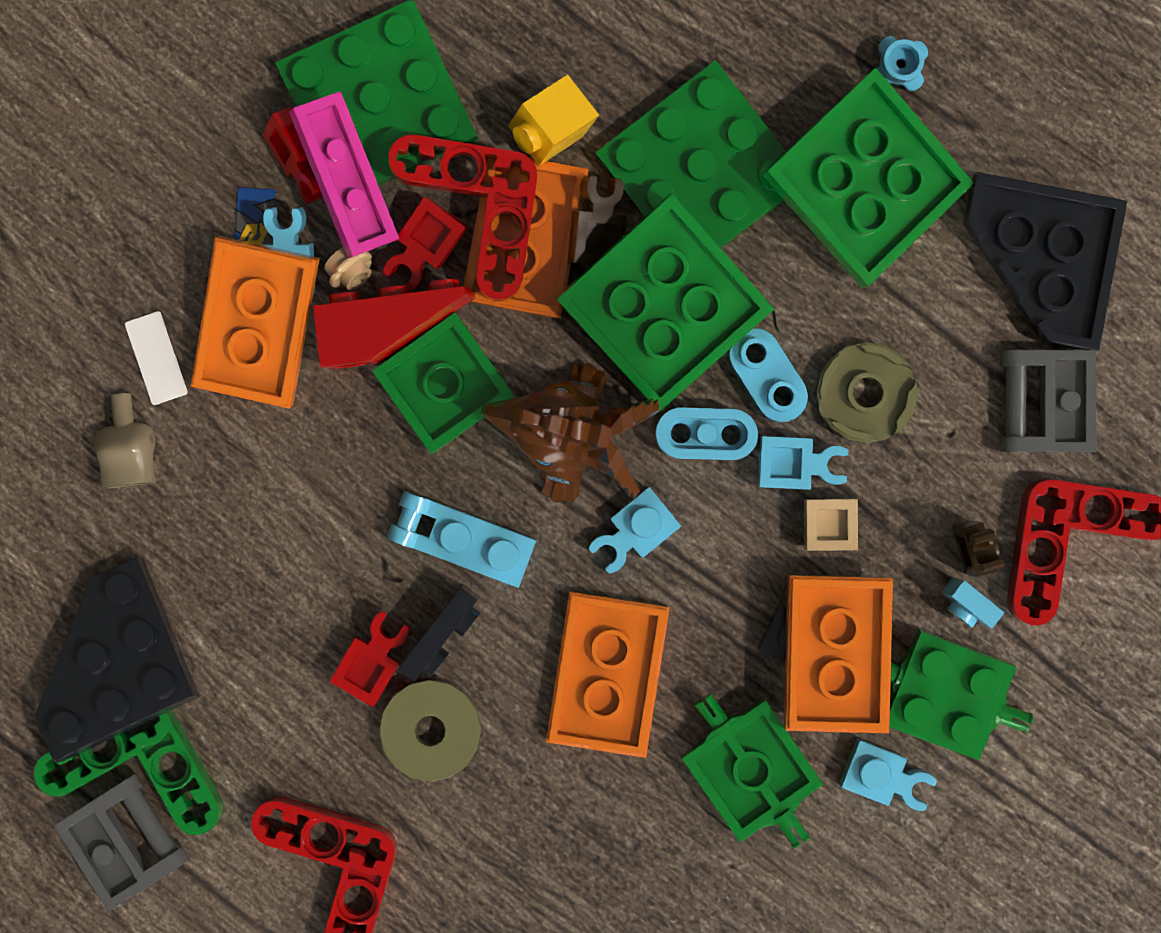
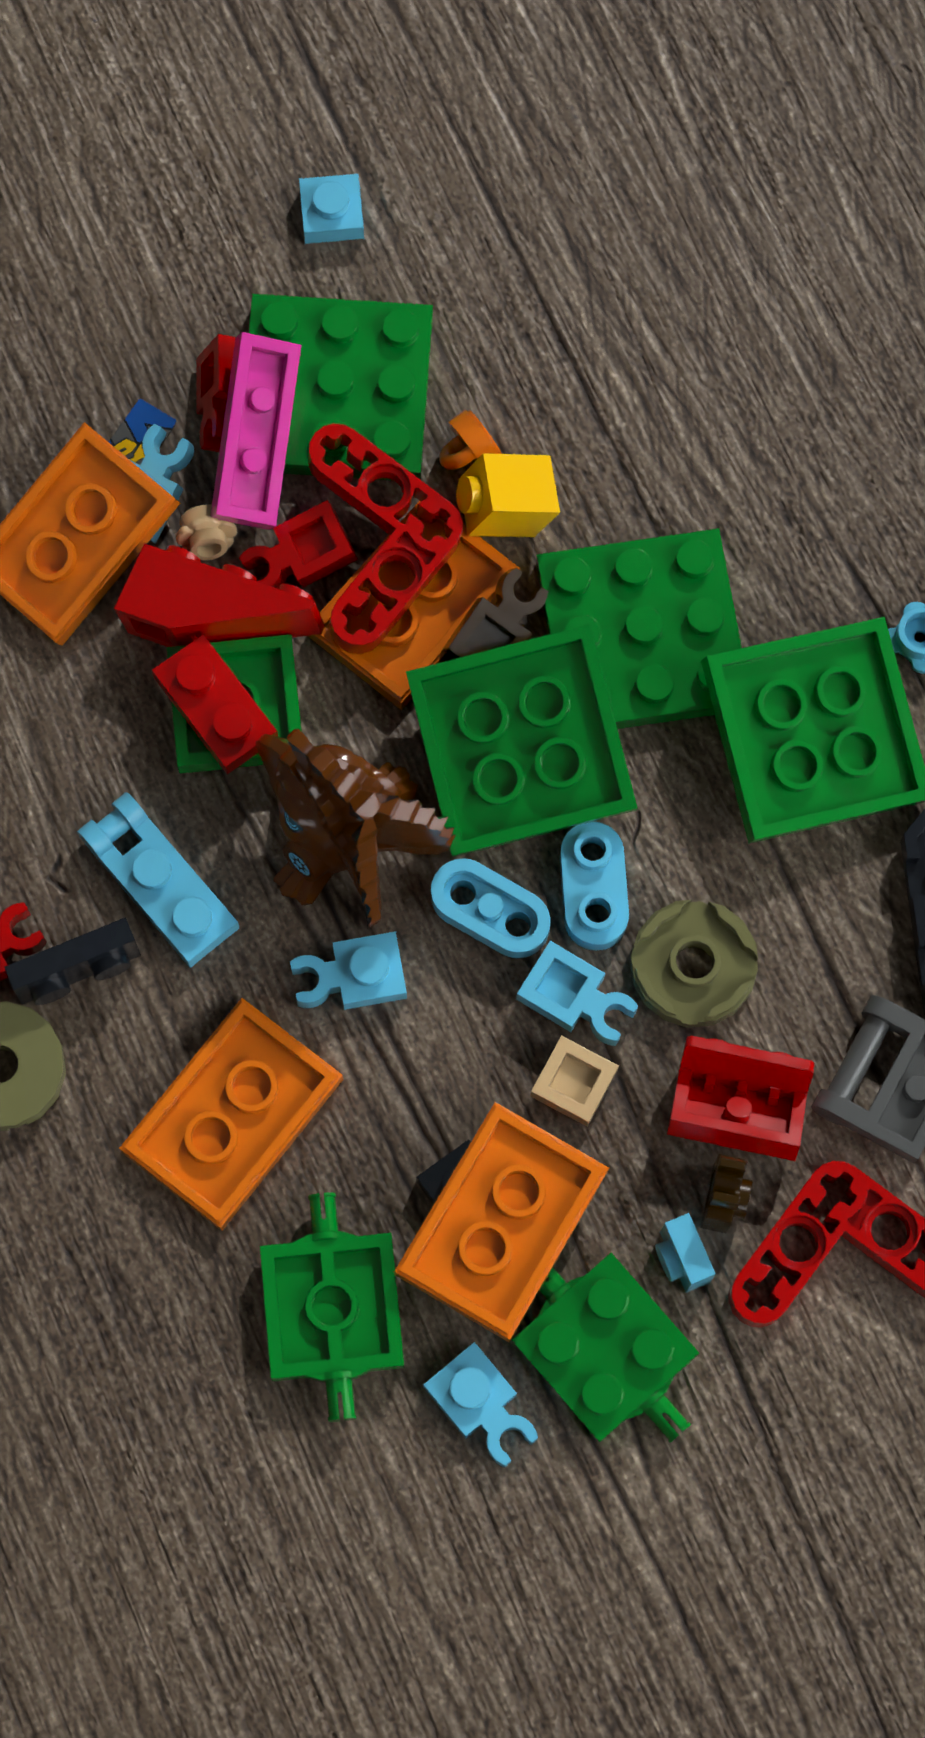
camera: 25 degrees right, 15 degrees down
(432, 396) = (213, 703): none -> red plate
(502, 87) = (469, 444): none -> orange tile
(952, 476) = (740, 1097): none -> red bracket

